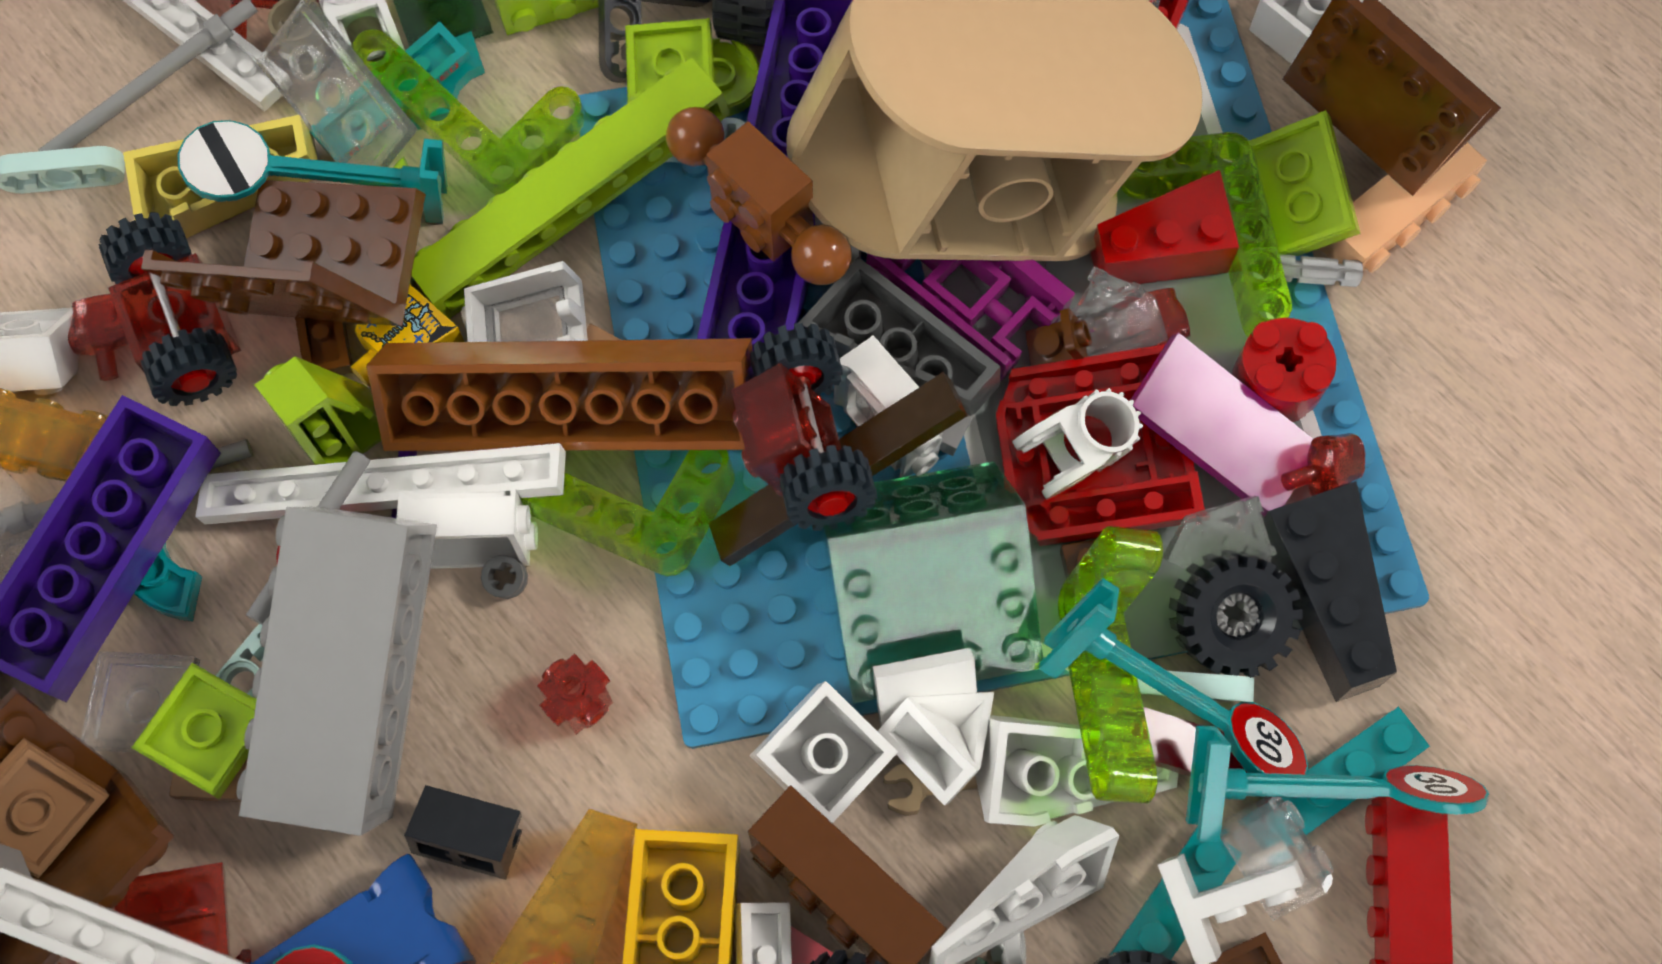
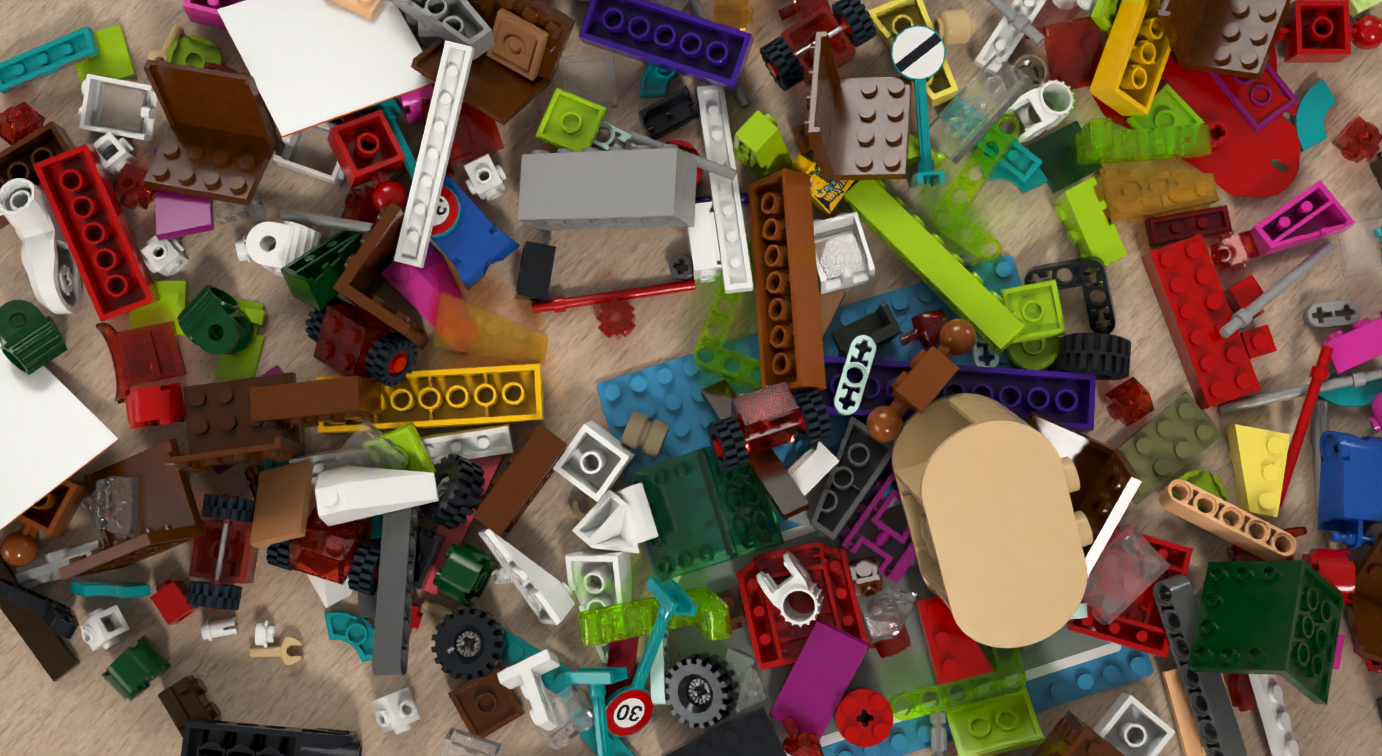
camera: 85 degrees right, 15 degrees up
(194, 111) = (954, 26): none -> tan head
(229, 567) = (668, 114): none -> black hinge
(270, 904) = (481, 170): none -> white brick
(532, 794) = (560, 304): none -> red bar
(662, 283) = (878, 325): none -> pearl dark grey panel
(672, 208) = (925, 328): none -> clear red piece
(708, 278) = (867, 357): none -> light aqua beam
(784, 663) = (645, 434): none -> dark tan wheel

